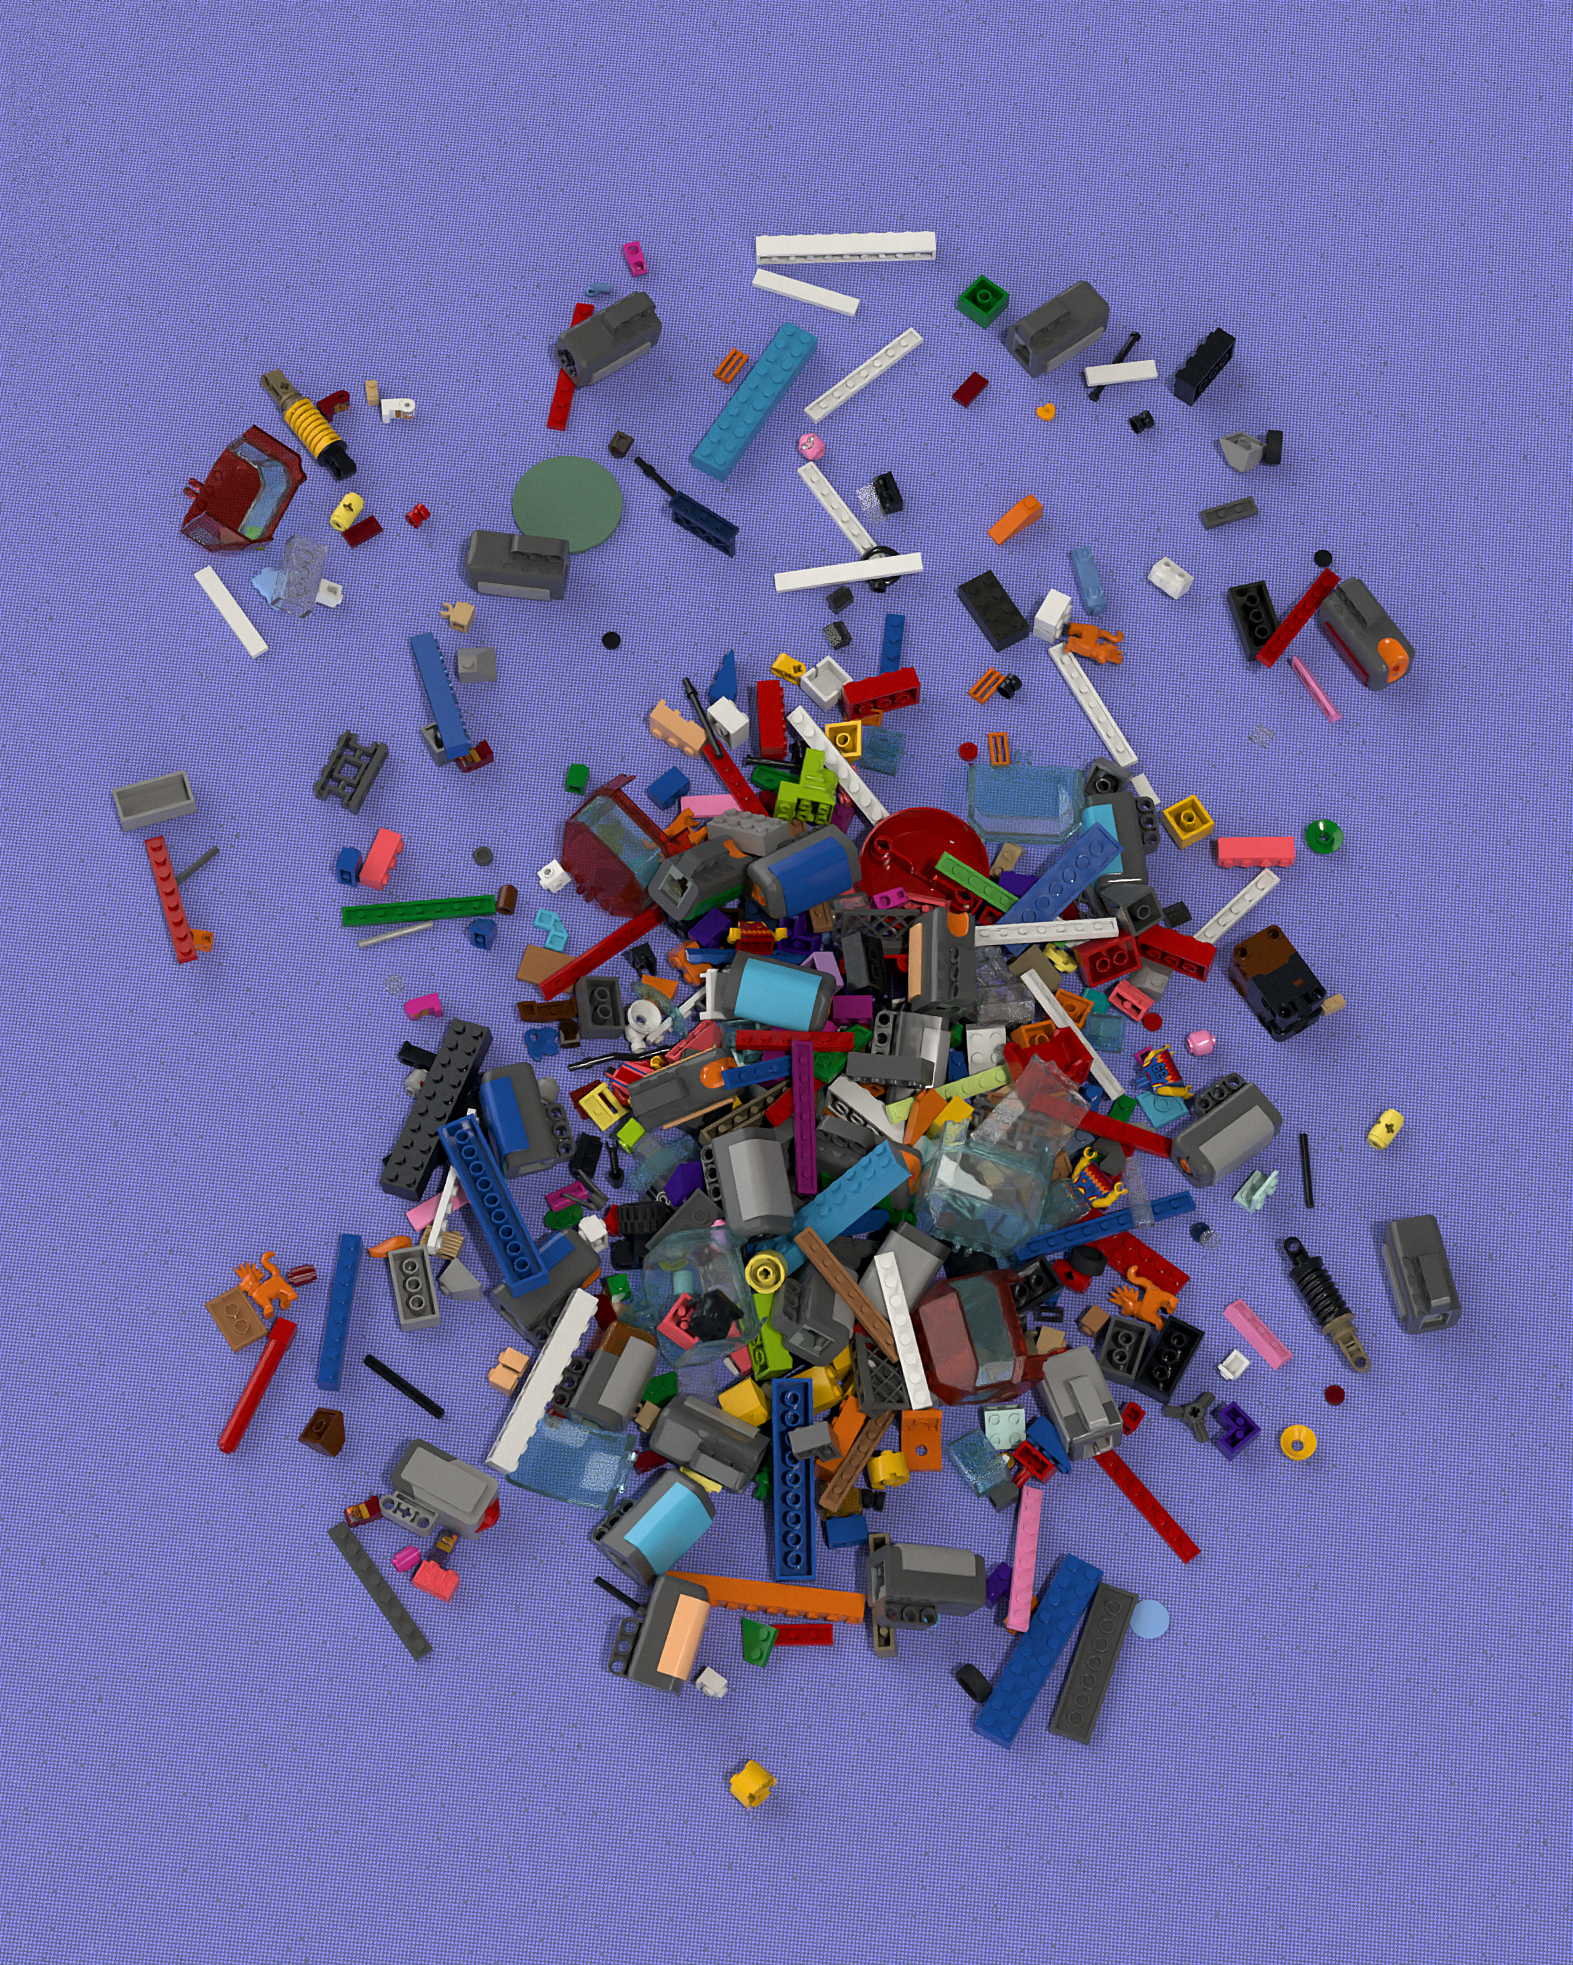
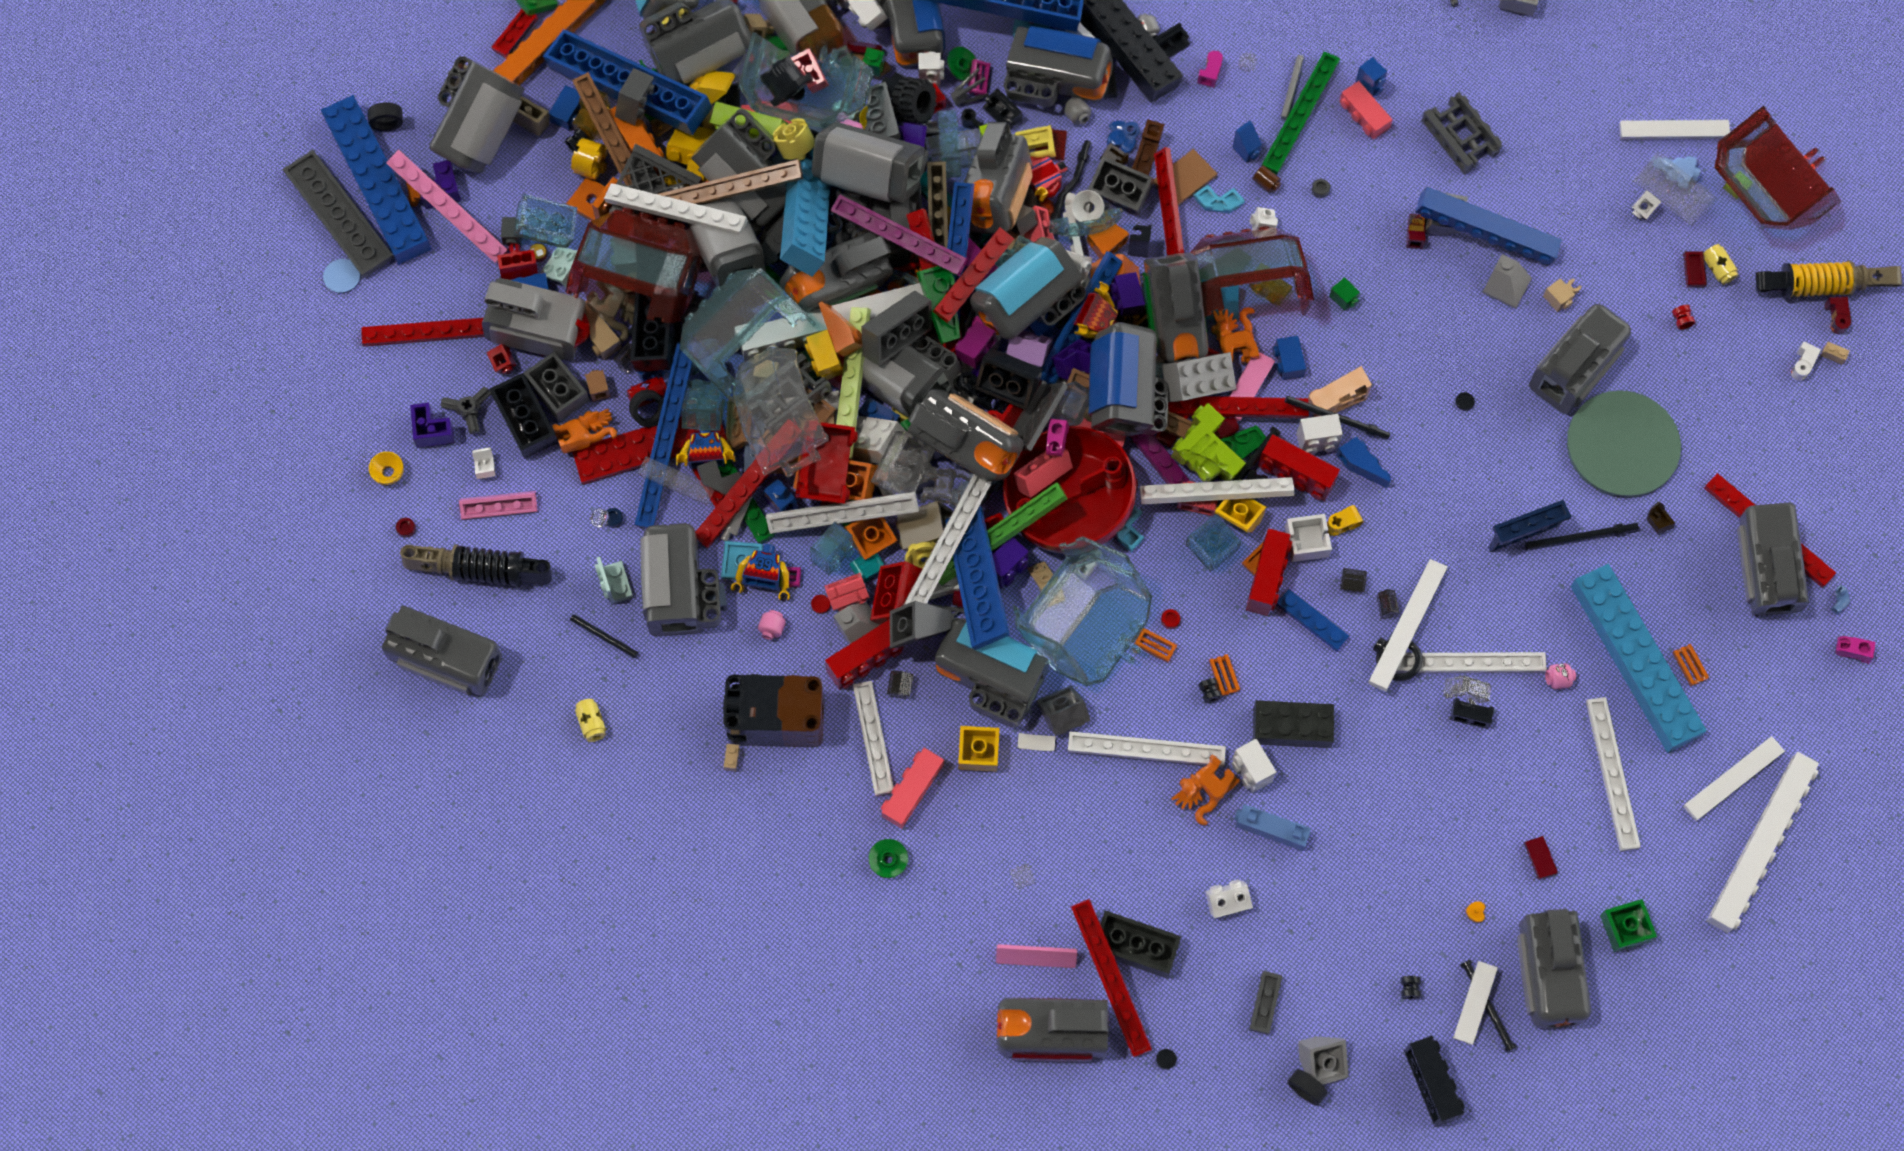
camera: 125 degrees right, 5 degrees up
(1016, 519) = (1375, 806): orange slope -> none

